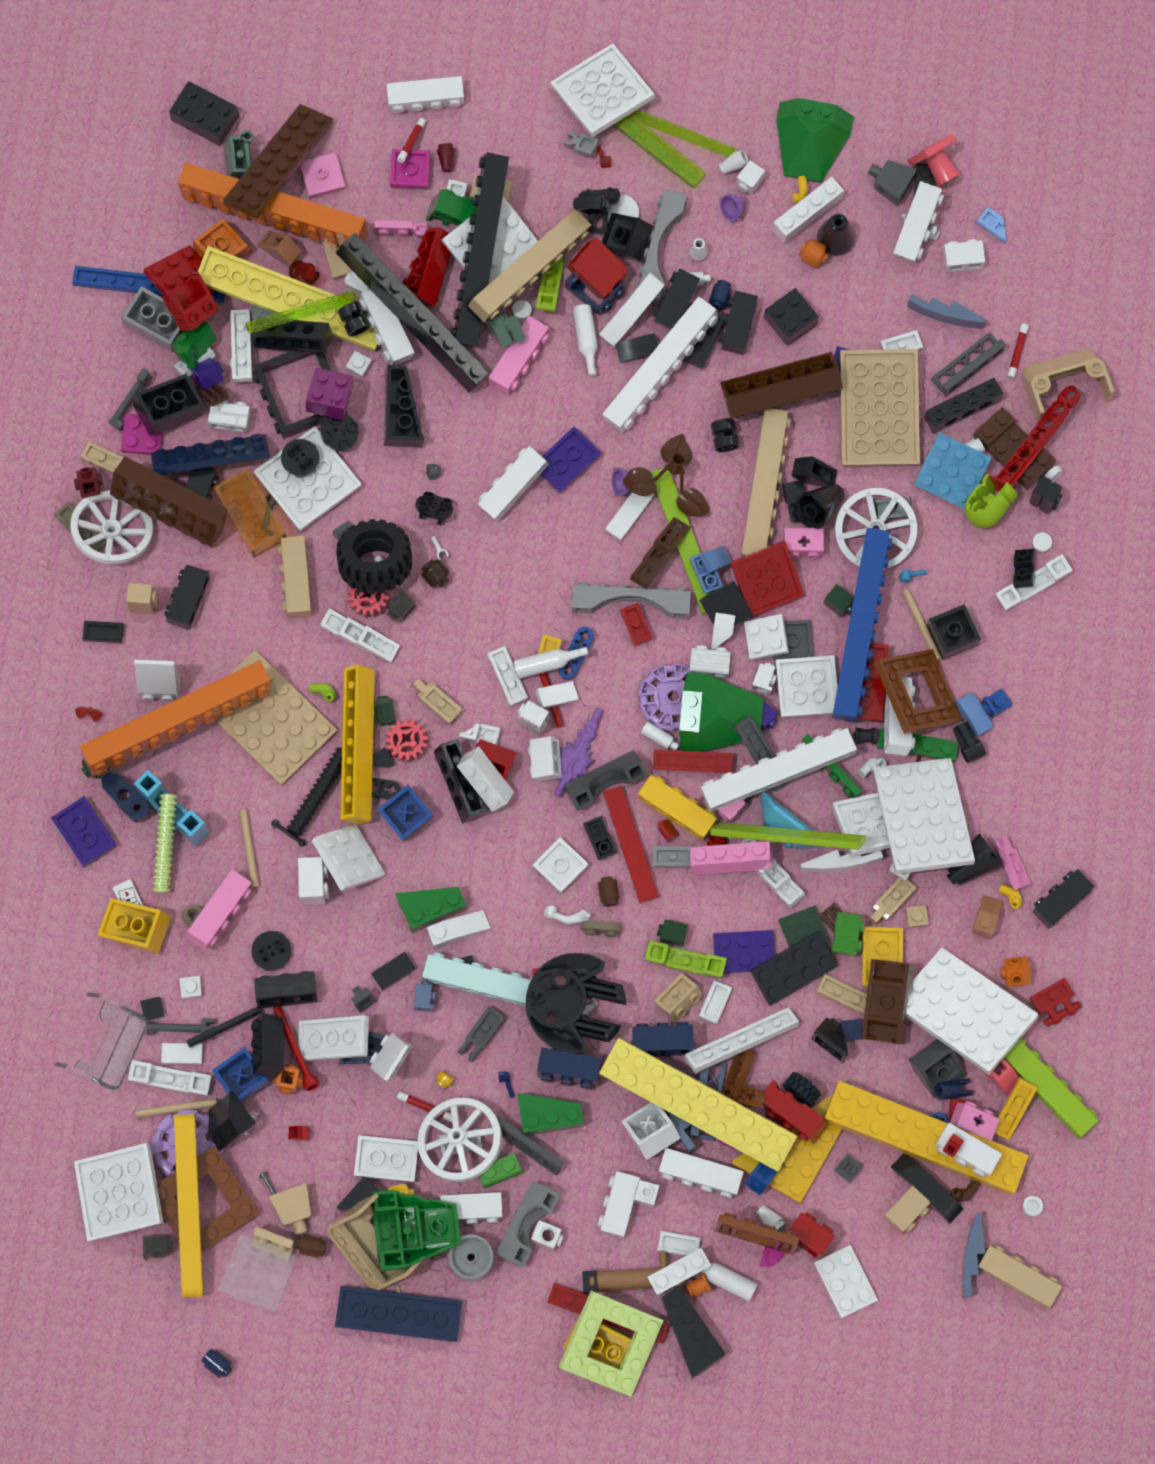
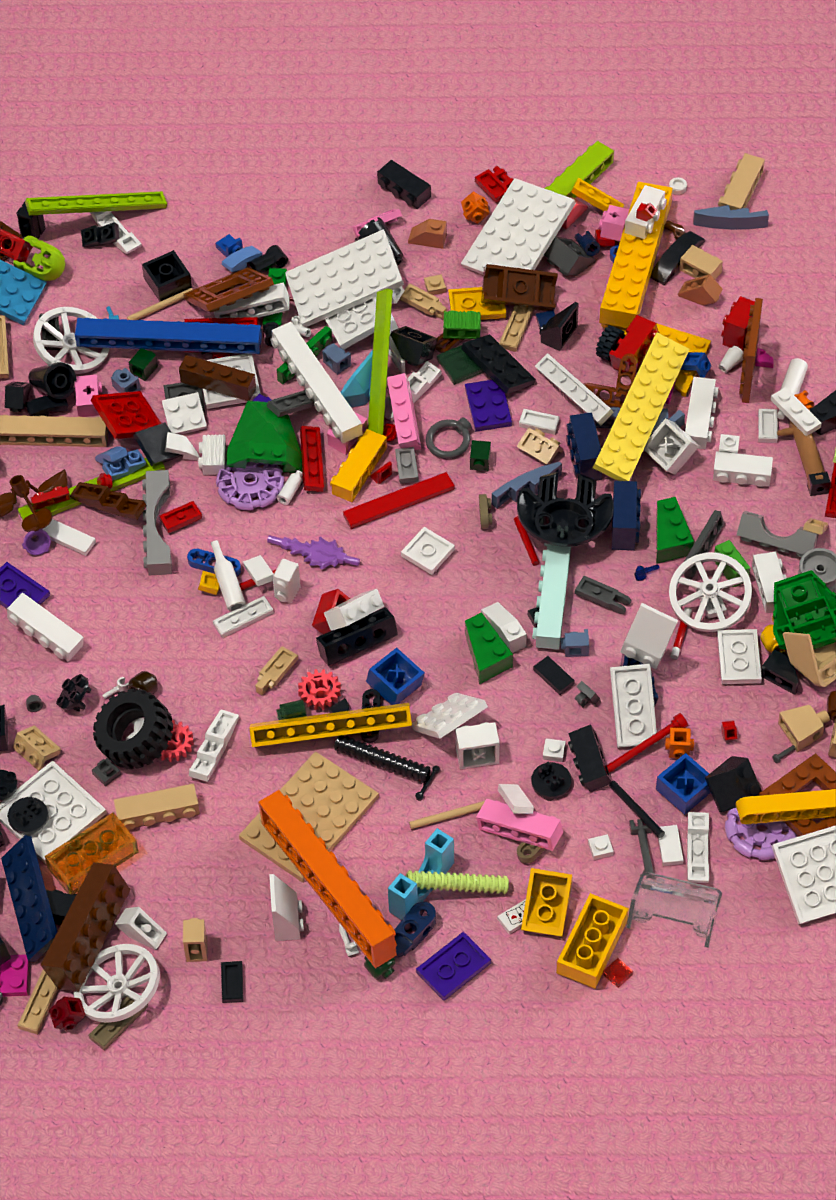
camera: 95 degrees left, 20 degrees down
(54, 982) = (618, 972): none -> clear red plate
(83, 960) = (592, 940): none -> yellow brick
(94, 713) = (323, 988): clear red piece -> none
(152, 1008) = (628, 877): black tile -> none
(168, 553) = (140, 927): none -> white slope
(175, 1108) = (725, 843): tan bar -> none
(186, 597) = (187, 903): black brick -> none
(244, 908) = (515, 798): none -> white tile
(267, 1045) = (651, 758): black brick -> none
(306, 958) = (554, 750): none -> white plate
(324, 689) = (275, 768): lime arm -> none
(381, 471) = (35, 747): none -> tan bracket
(400, 606) = (181, 710): clear smoke window -> none
(484, 732) = (304, 629): white slope -> none
(530, 1265) = (815, 526): none -> tan tile
(543, 1227) = (783, 521): white brick -> none
(545, 759) = (325, 571): white brick -> none
(551, 912) = (477, 535): white piece -> none
(599, 838) = (397, 525): black slope -> none
(608, 891) = (448, 509): reddish brown brick -> none
(623, 769) = (327, 505): dark grey arch -> none
(632, 982) = (527, 480): none -> sand blue slope
(672, 503) = (56, 496): none -> red plate
(683, 550) = (105, 480): none -> red plate
(685, 960) = (504, 441): lime slope -> none
(715, 920) = (462, 426): none -> dark grey piece
(764, 678) = (225, 412): white brick -> none
(800, 671) = (217, 378): none -> reddish brown brick
(816, 587) = (125, 381): none -> sand blue brick
(822, 878) = (414, 345): none -> black slope
(823, 799) = (336, 358): none -> sand blue brick
(845, 1281) = (778, 303): white plate -> none
(848, 1168) = (672, 311): dark grey tile -> none
(870, 1202) = (701, 290): none -> nougat slope
(1013, 896) = (406, 219): yellow arm -> none
(1042, 542) = (73, 227): white tile -> none
(1054, 473) = (8, 220): white tile -> none
(1059, 563) = (95, 203): none -> lime tile

